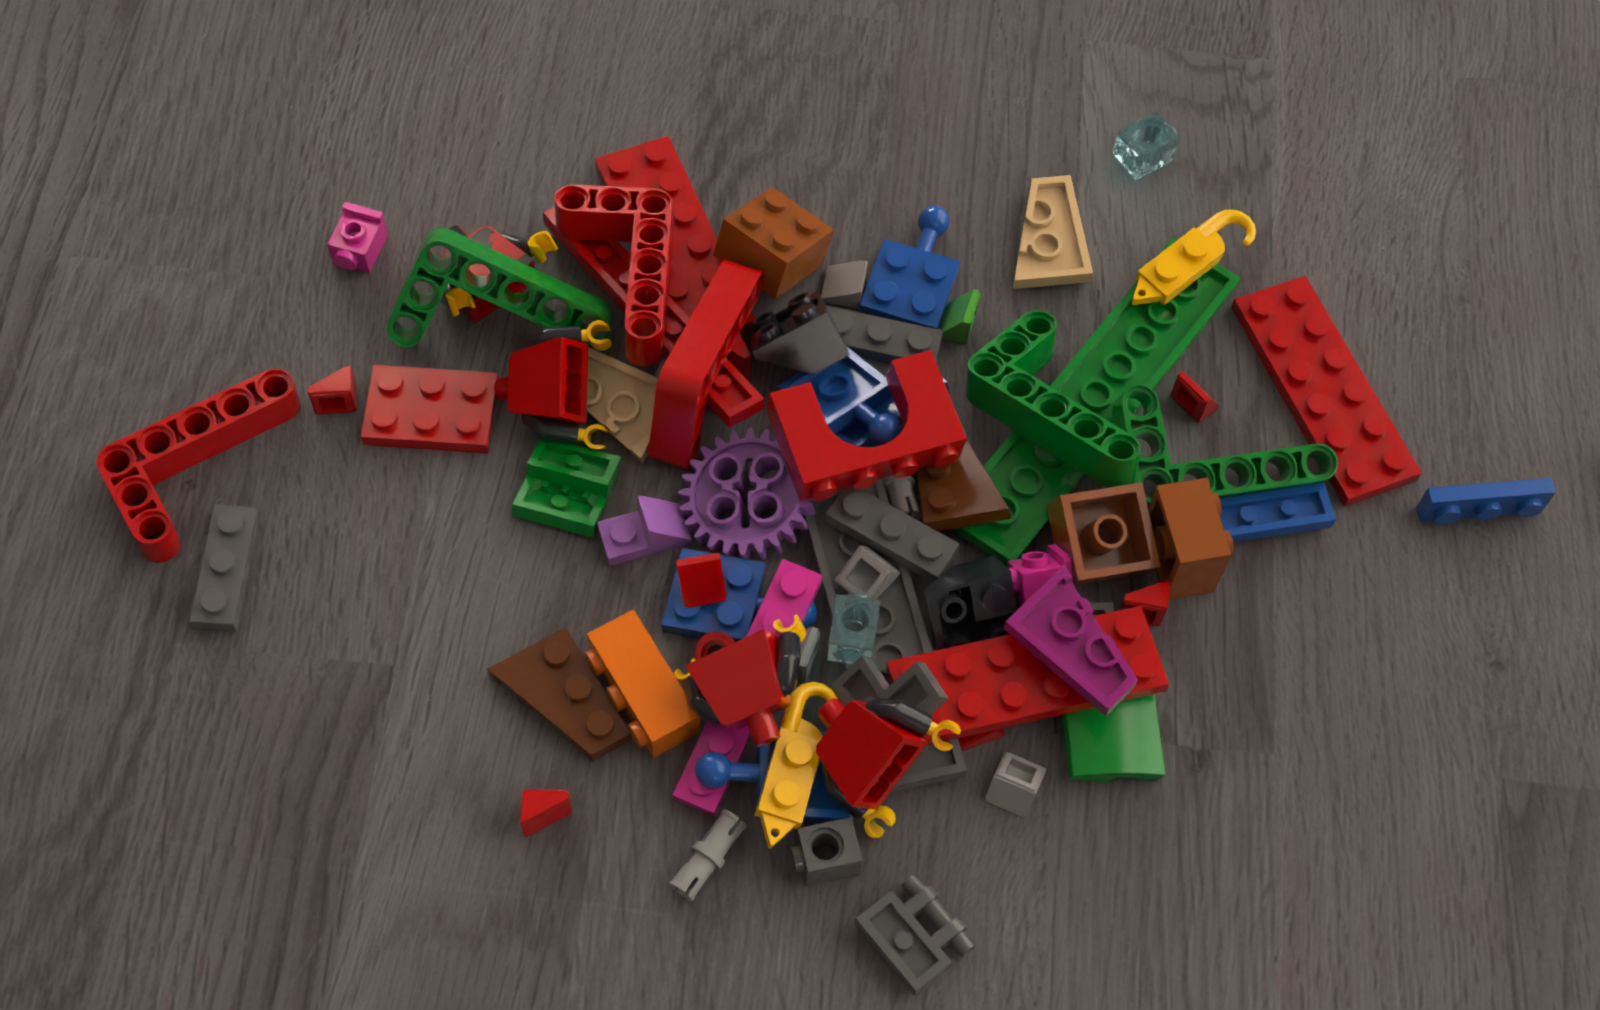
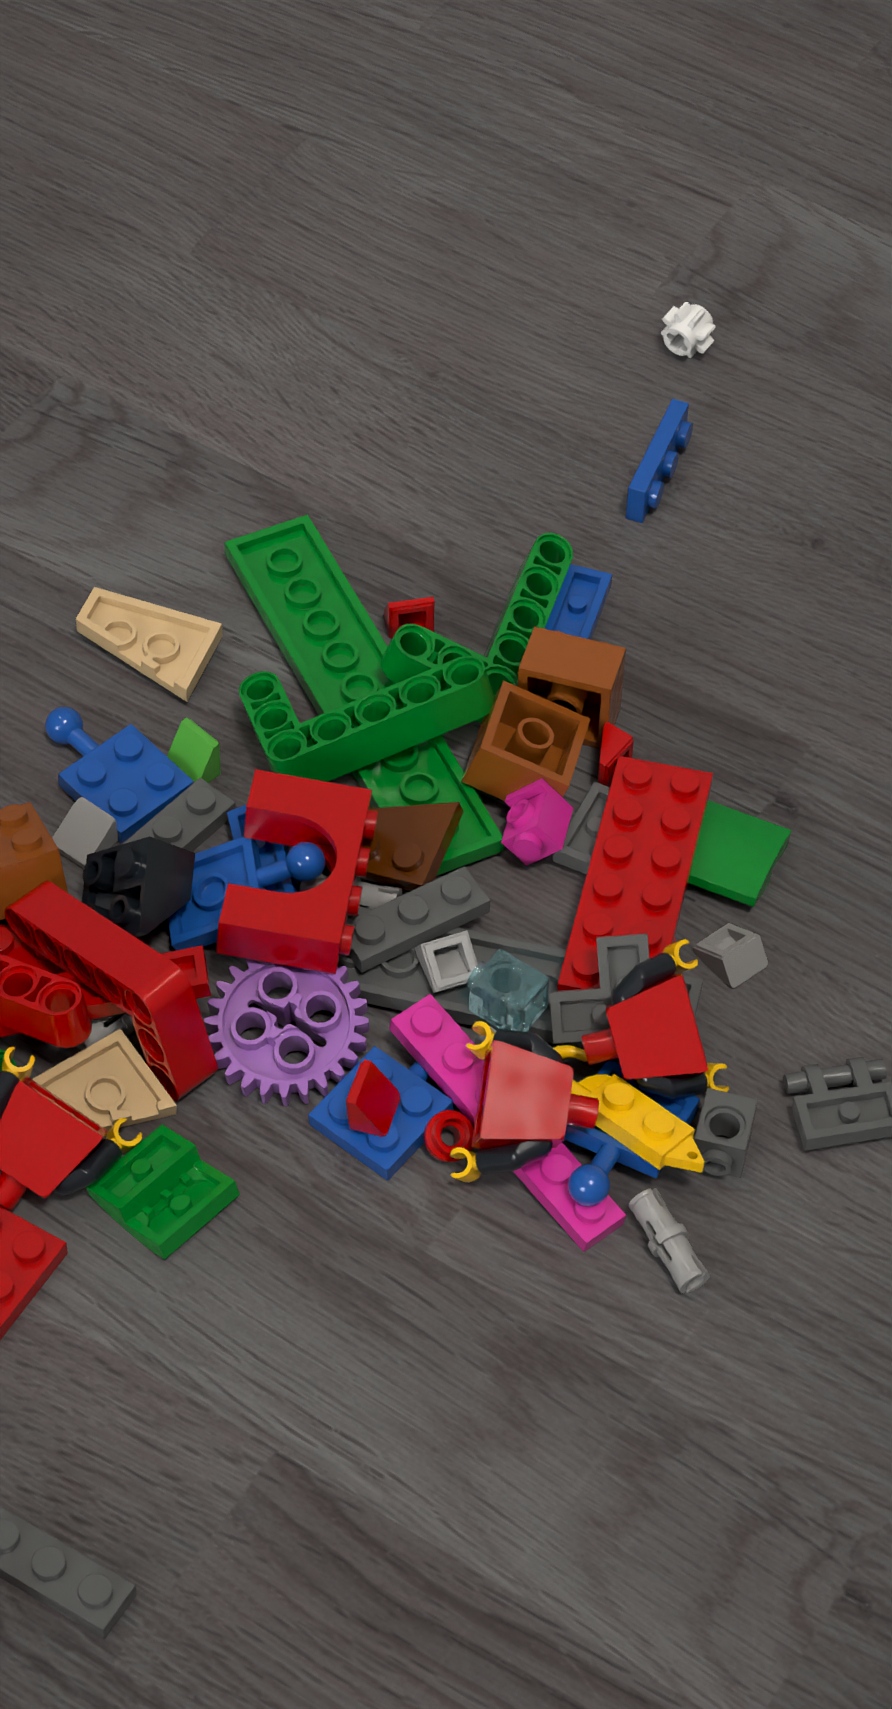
camera: 60 degrees left, 10 degrees down
(543, 808) = (535, 1366): red slope -> none
(564, 691) = (405, 1294): reddish brown wing -> none
(641, 684) = (447, 1214): orange brick -> none
(645, 532) = (264, 1146): medium lavender slope -> none
(970, 602) = (535, 886): black slope -> none
(1068, 640) = (629, 821): magenta wing -> none
(1146, 145) = (101, 512): clear light blue brick -> none
(1188, 258) = (262, 540): yellow plate -> none
(1326, 389) = (456, 516): red plate -> none

